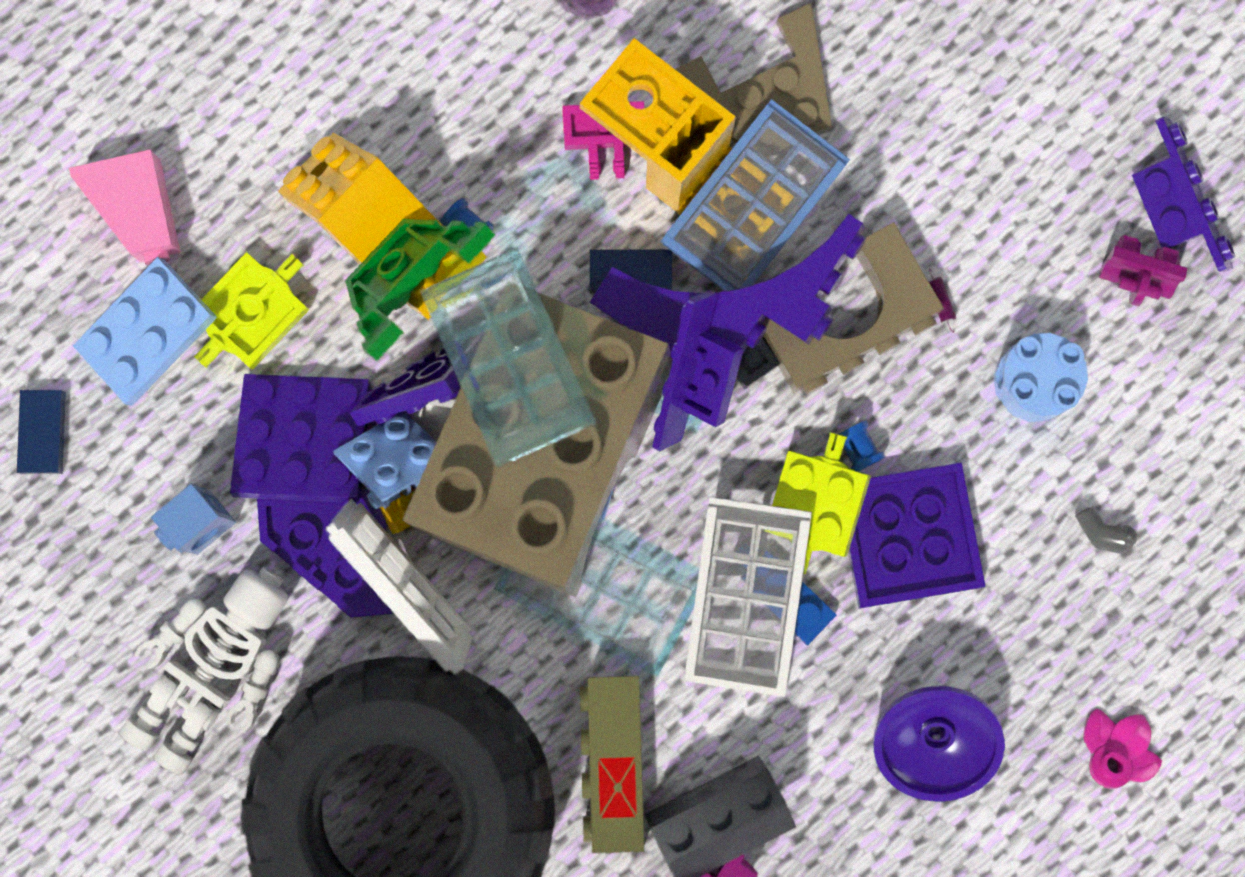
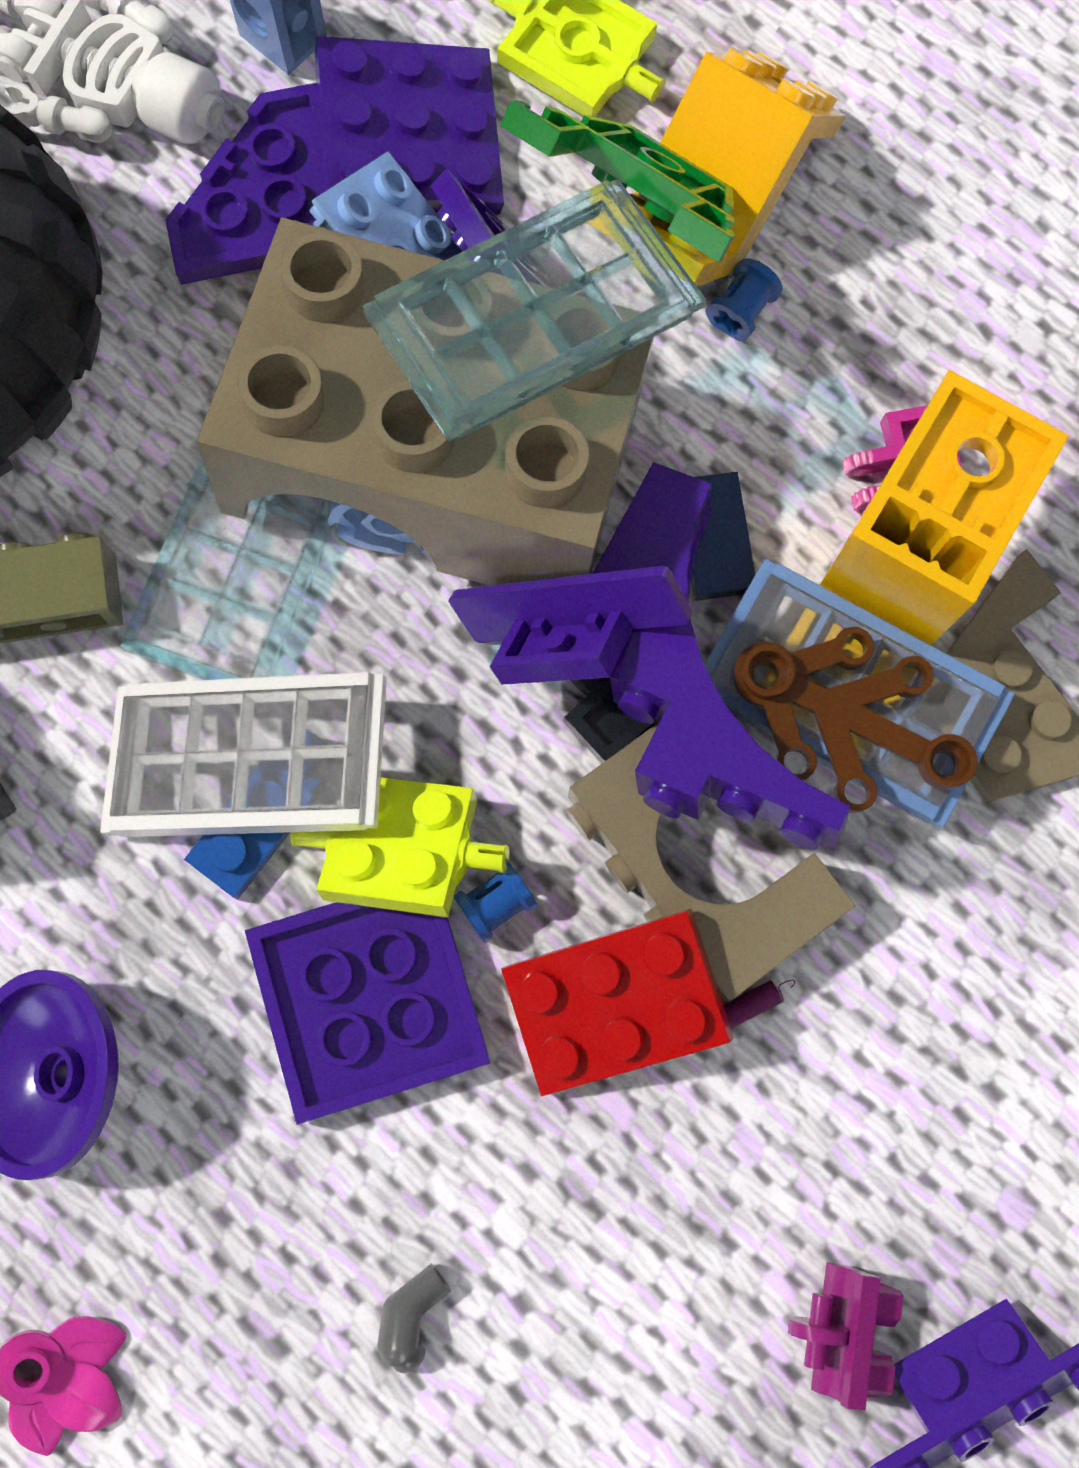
camera: 80 degrees right, 5 degrees down
(401, 585) = (197, 251): white piece -> none
(773, 210) = (841, 712): none -> reddish brown plant
(934, 378) = (617, 1003): none -> red plate
(1041, 377) = (645, 1179): light blue brick -> none

